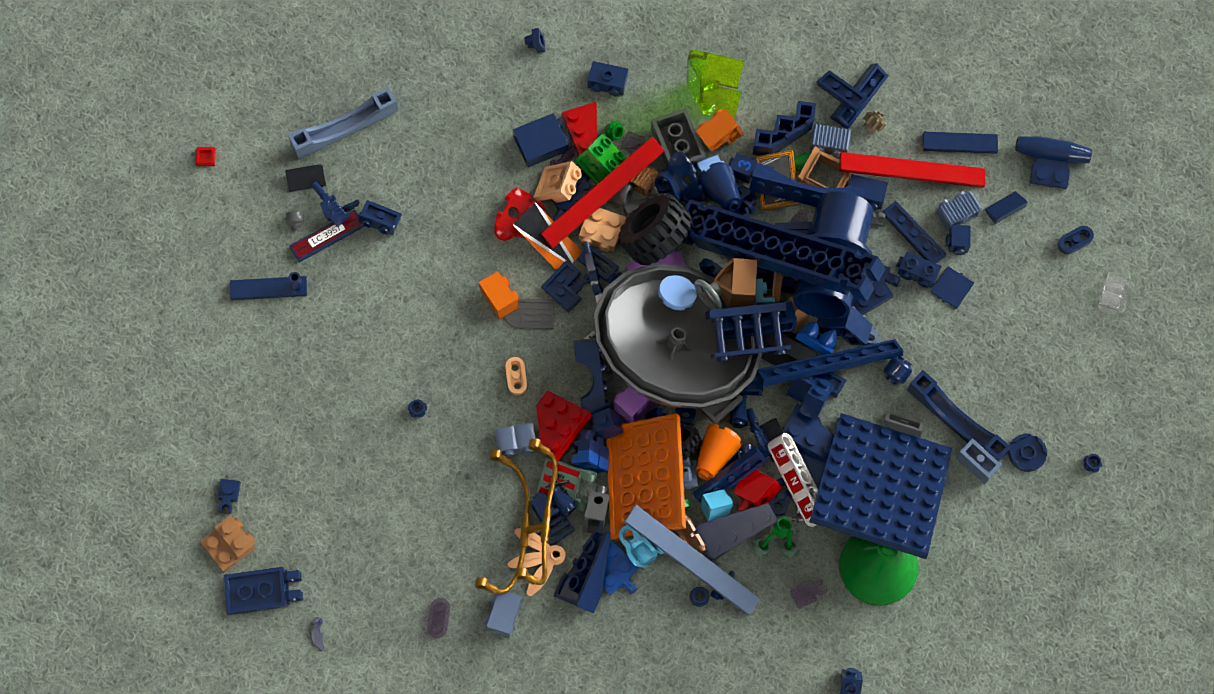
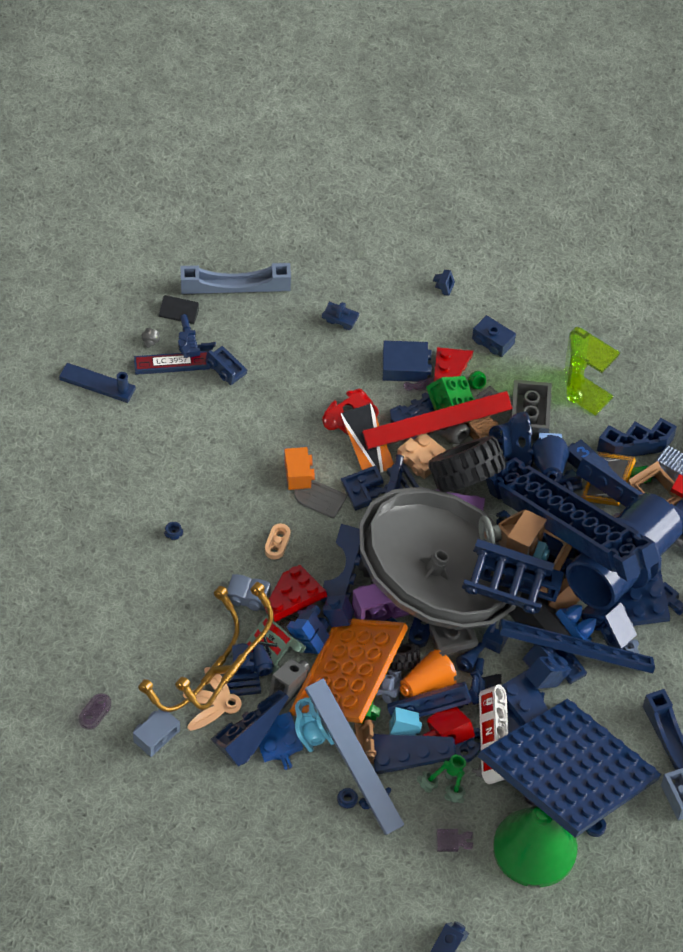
camera: 25 degrees right, 15 degrees down
(205, 156) = (102, 260): red tile -> none
(458, 118) = (341, 315): none -> dark blue hips
(558, 182) = (402, 399): light nougat plate -> none
(677, 292) = (460, 523): light blue tile -> none
(719, 130) = (574, 413): orange brick -> none
(898, 370) = (641, 683): dark blue head -> none
(903, 424) = (623, 732): dark grey tile -> none

